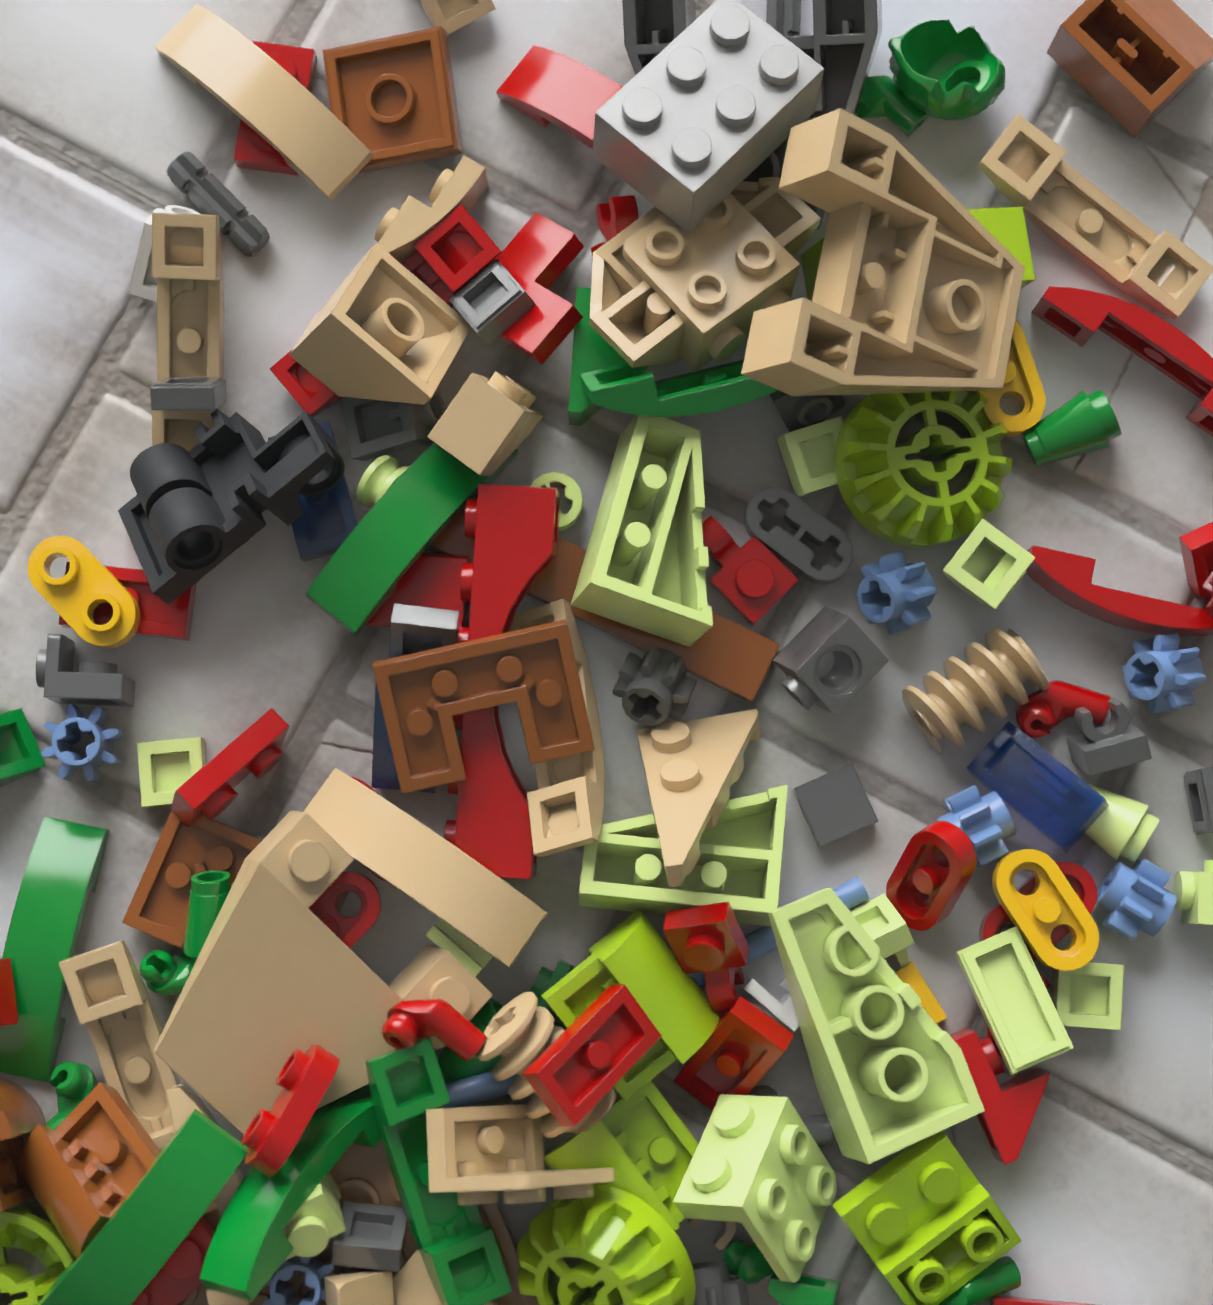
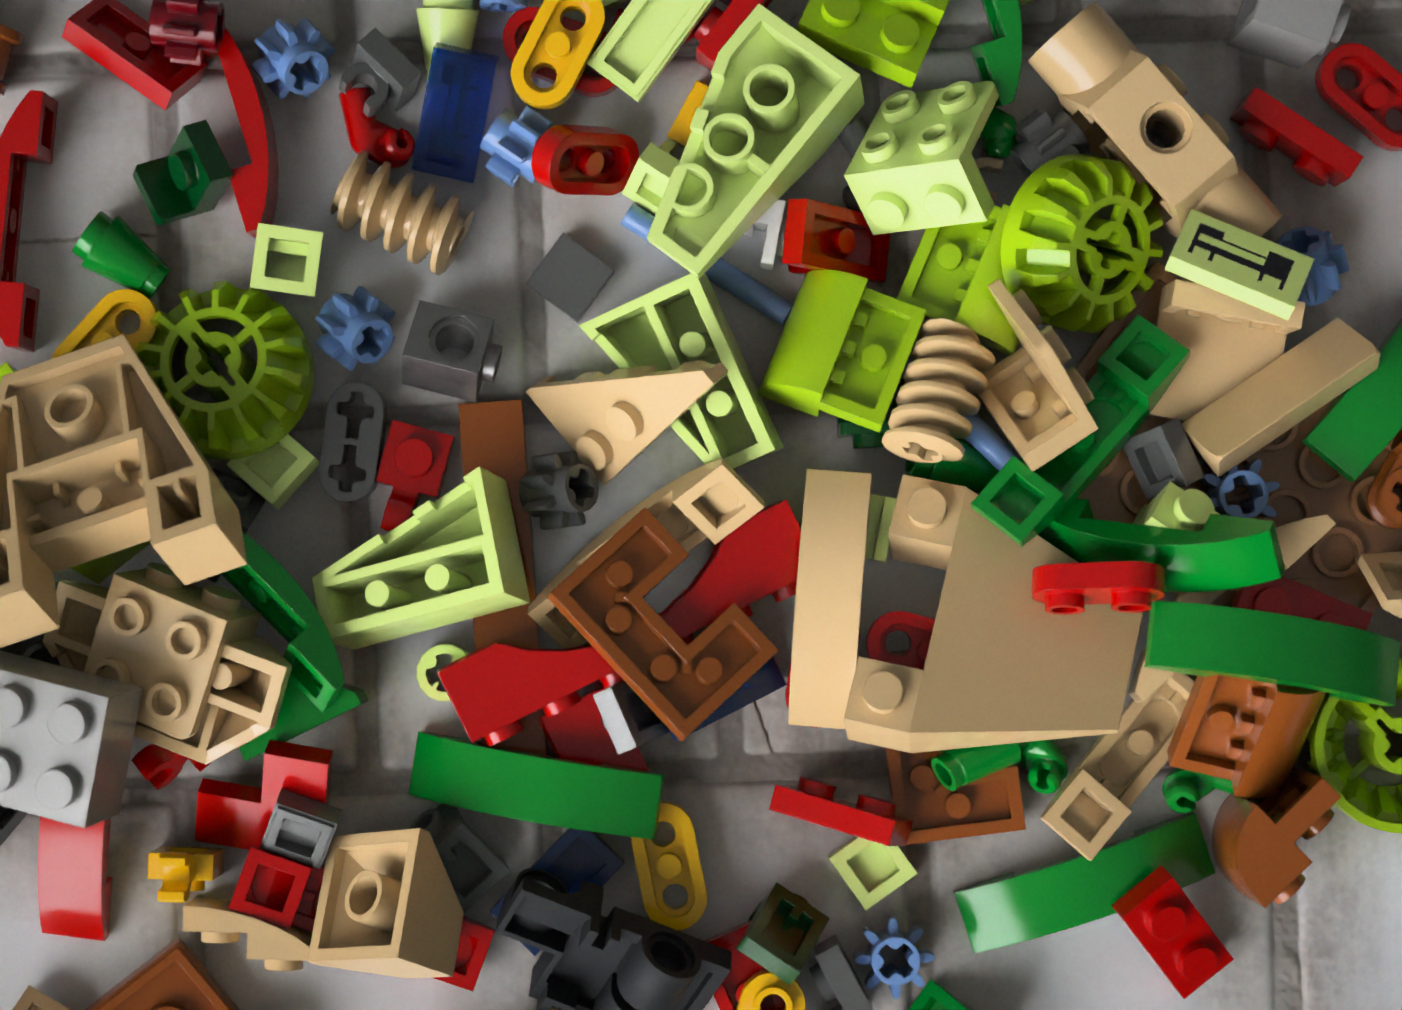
camera: 125 degrees left, 5 degrees up
(159, 658) = (782, 933): none -> dark green bracket
(277, 599) = (671, 864): none -> yellow plate
(378, 479) = (515, 834): yellowish green bush -> none
(432, 1019) = (953, 510): red arm -> none
(486, 422) = (411, 769): tan slope -> none
(515, 187) = (184, 870): none -> yellow plate
(592, 1055) = (905, 357): red plate -> none
(711, 943) = (752, 313): red plate -> none
(1108, 522) = (187, 179): none -> dark green bracket

